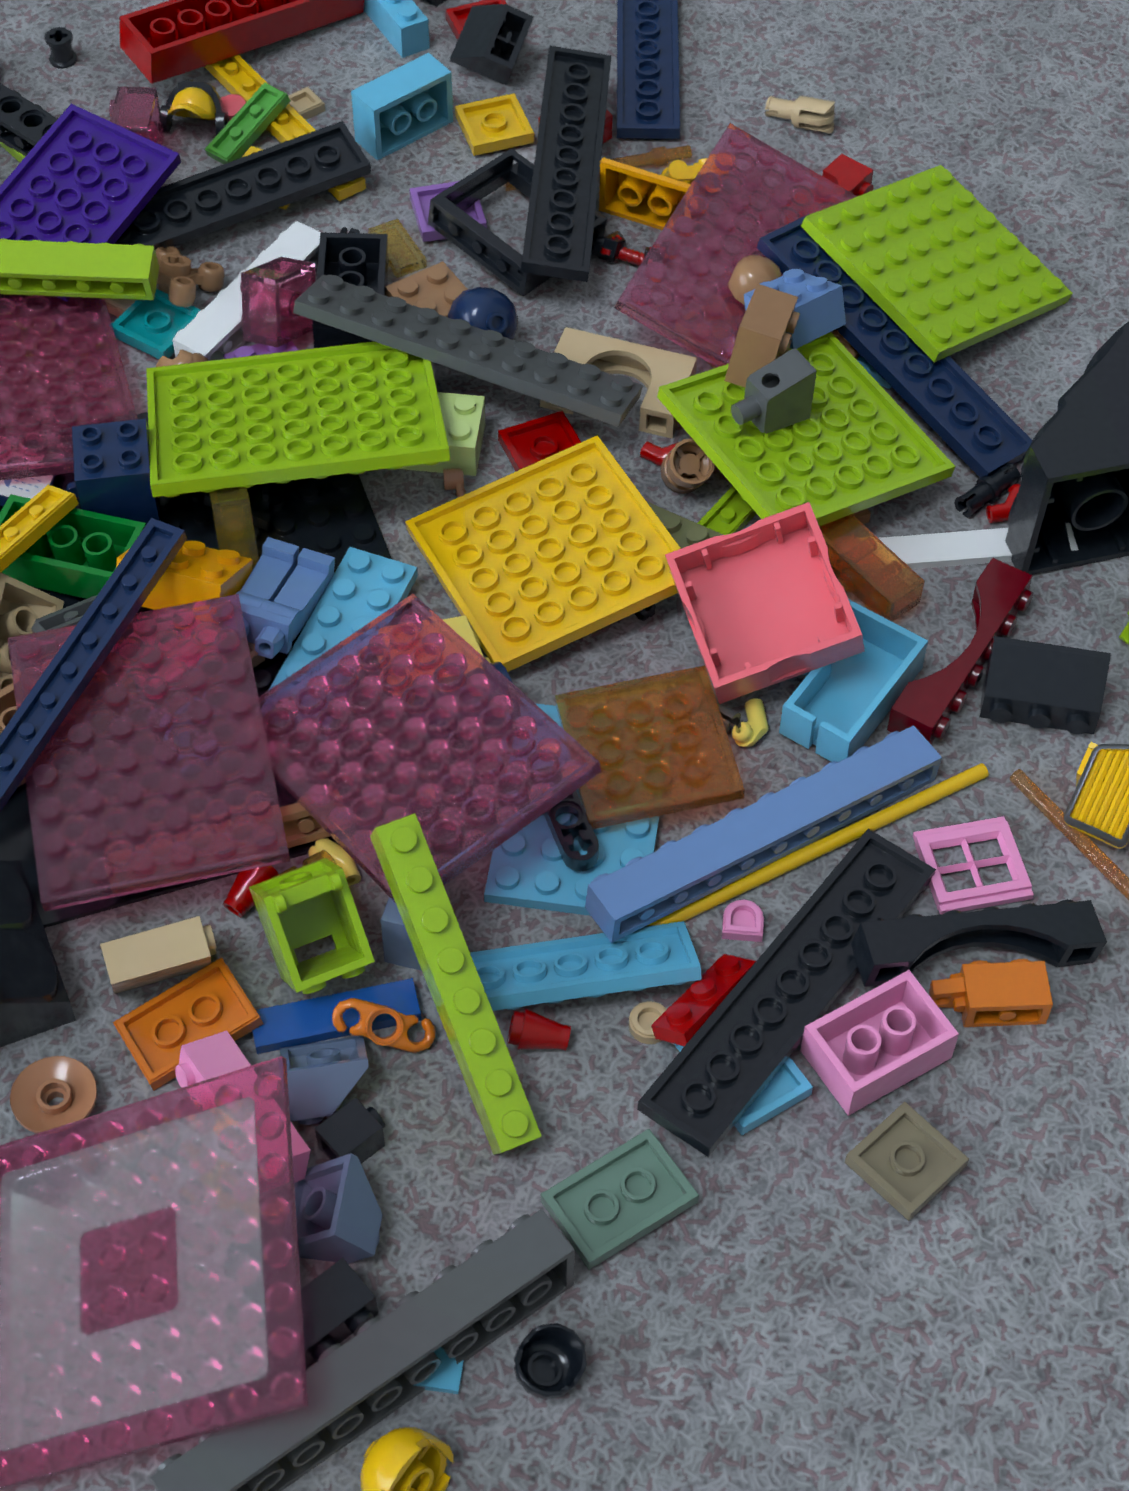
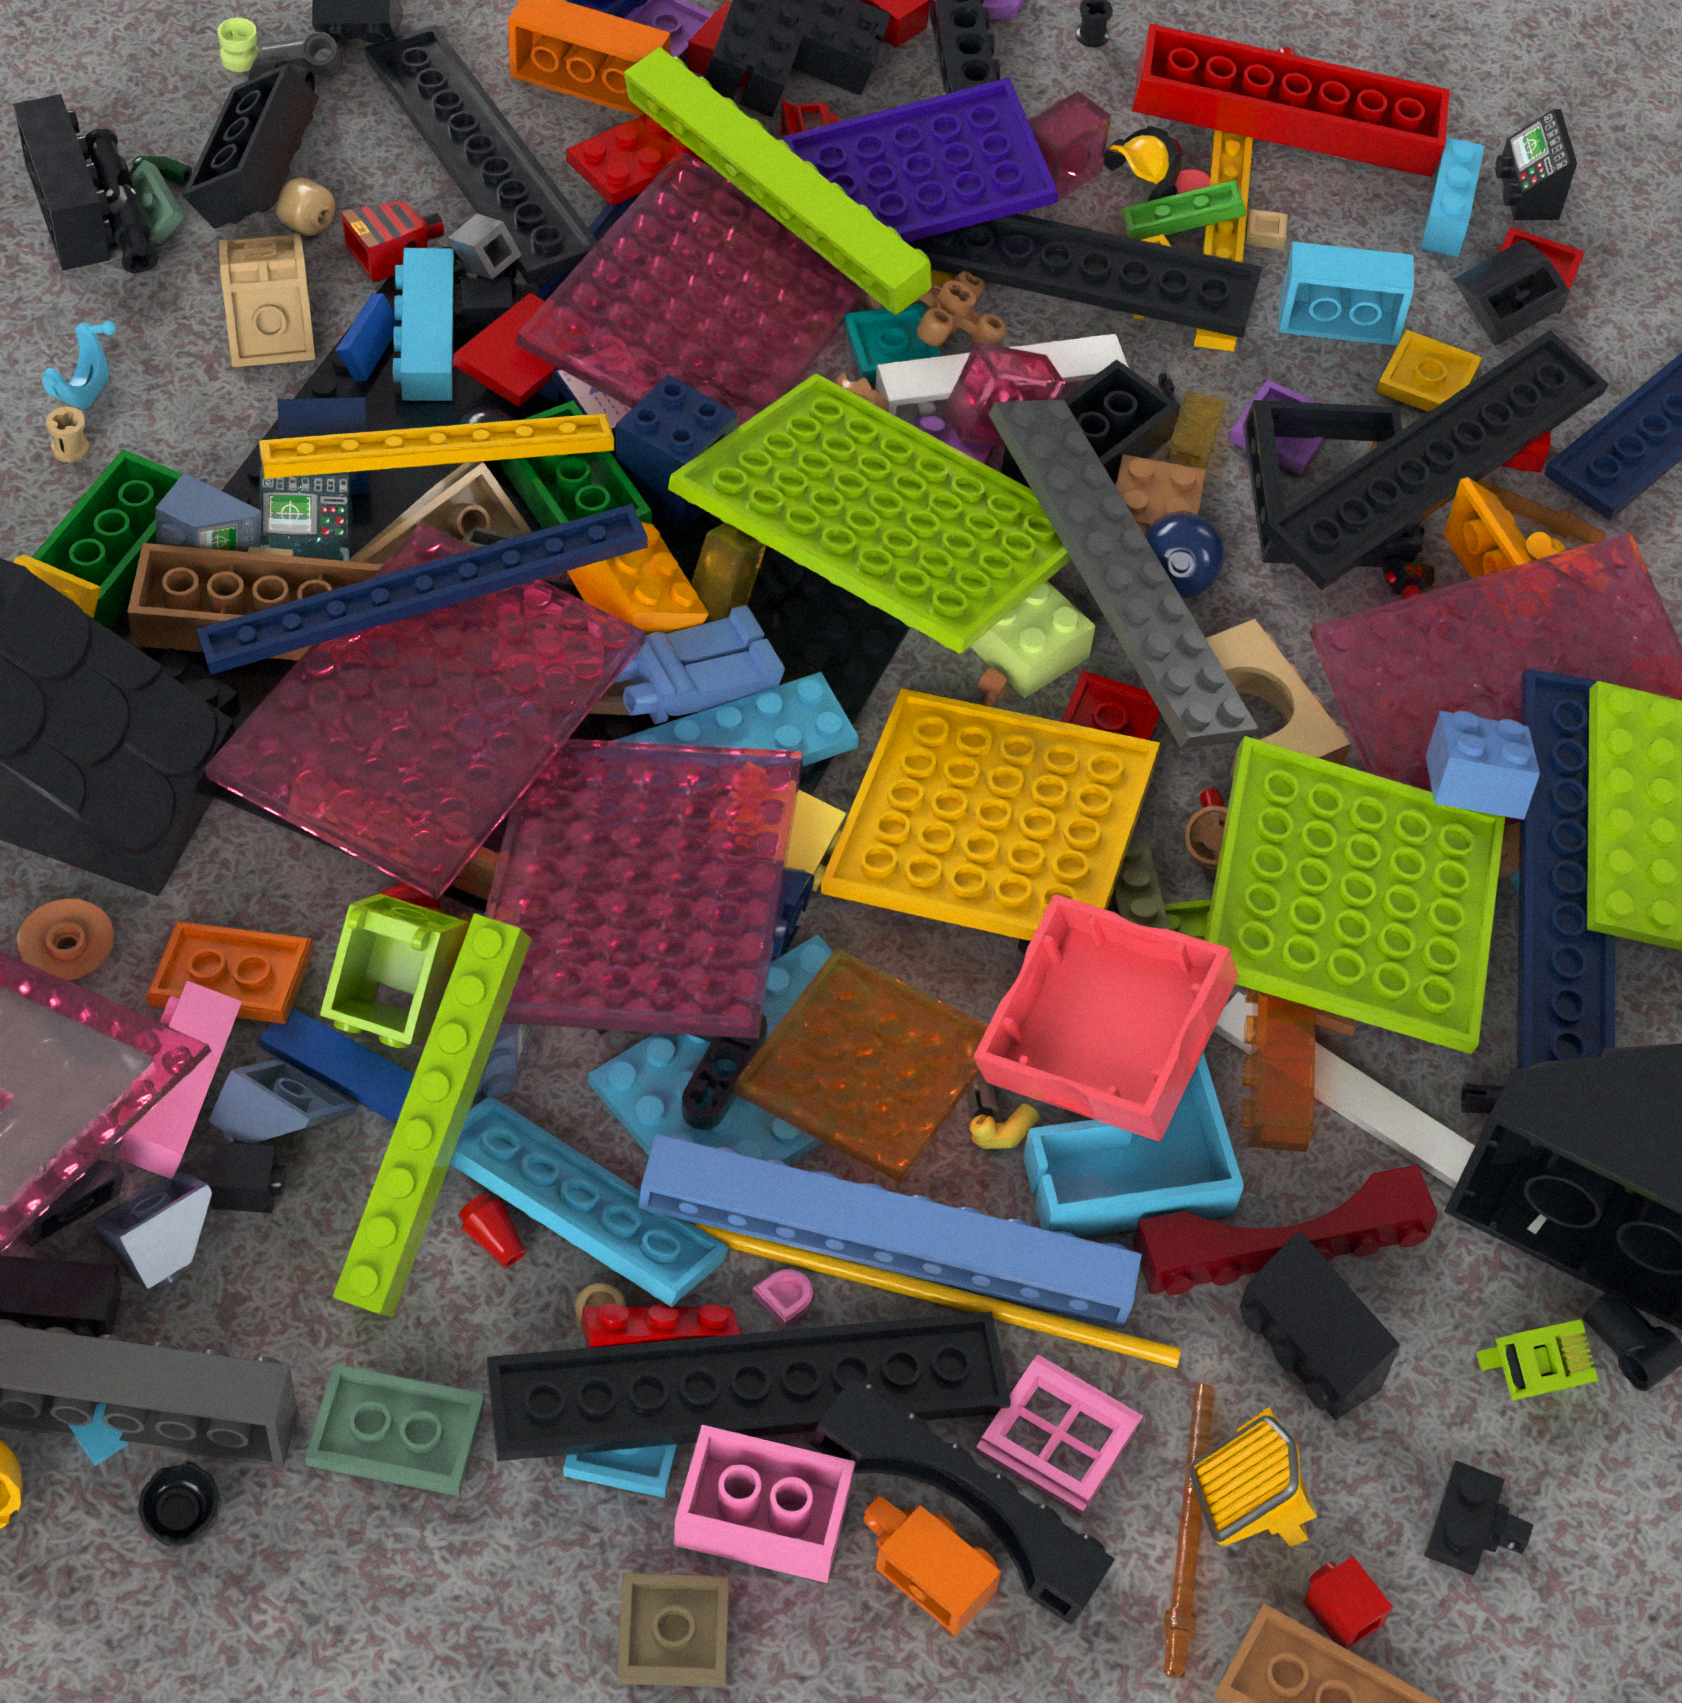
camera: 40 degrees right, 0 degrees up
(158, 954) = (256, 890): tan brick -> none
(398, 1039) = (369, 1086): orange piece -> none
(749, 273) = (1485, 698): medium nougat hair -> none
(762, 333) = (1390, 763): medium nougat brick -> none
(778, 394) = (1340, 828): dark grey torso -> none

